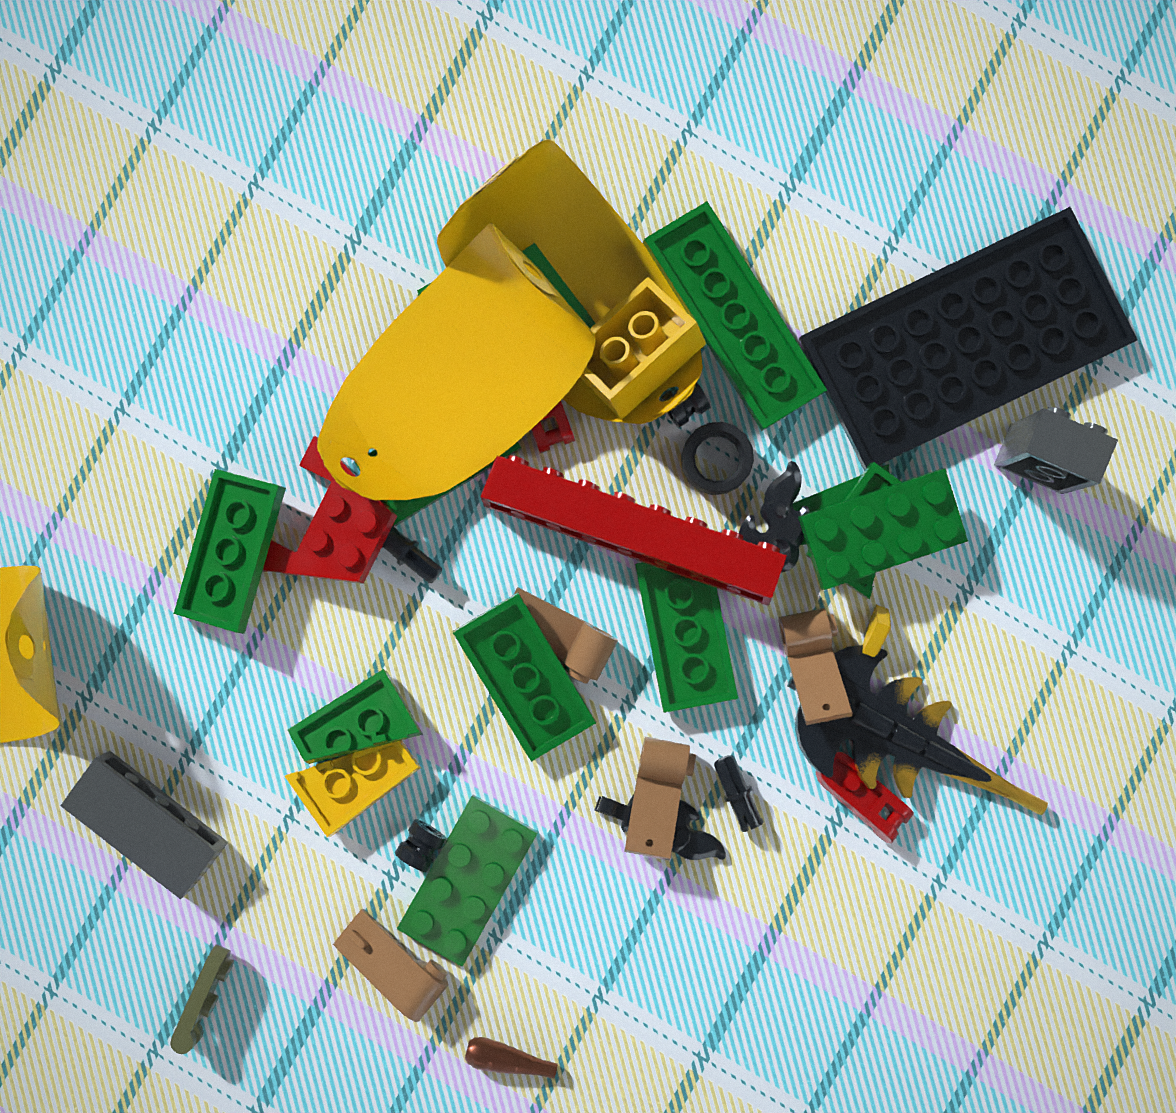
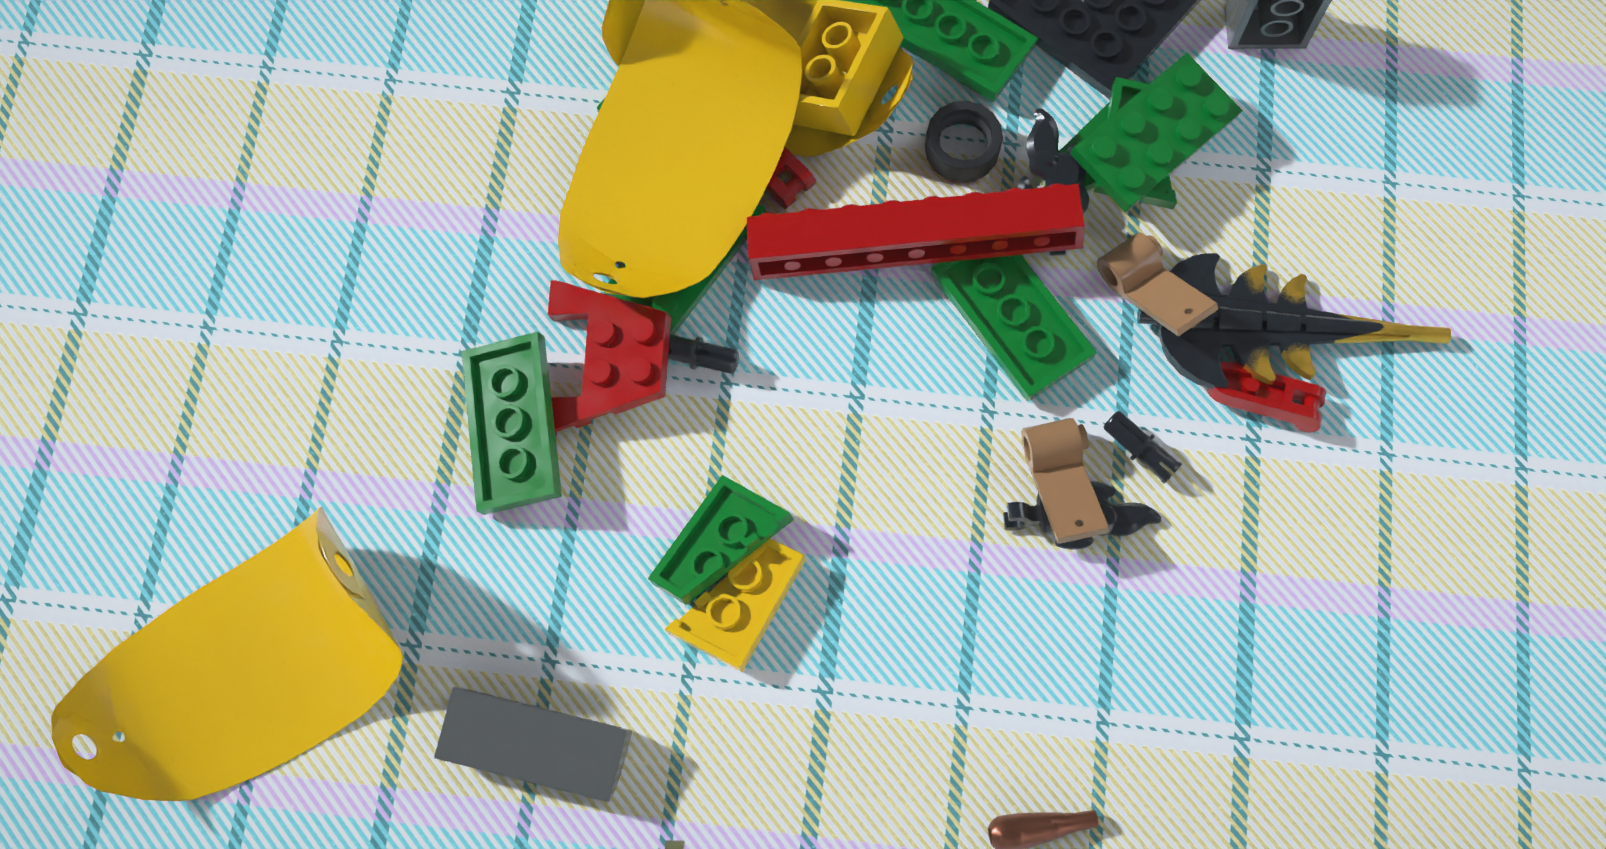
camera: 30 degrees left, 15 degrees down
(404, 981) = (868, 780): medium nougat door -> none
(420, 845) = (841, 637): black wheel -> none
(467, 880) = (907, 658): green plate -> none
(524, 676) = (872, 419): green plate -> none
(574, 641) = (887, 369): medium nougat door -> none
(696, 402) = (916, 99): black wheel -> none
(877, 631) = (1198, 236): yellow tile -> none

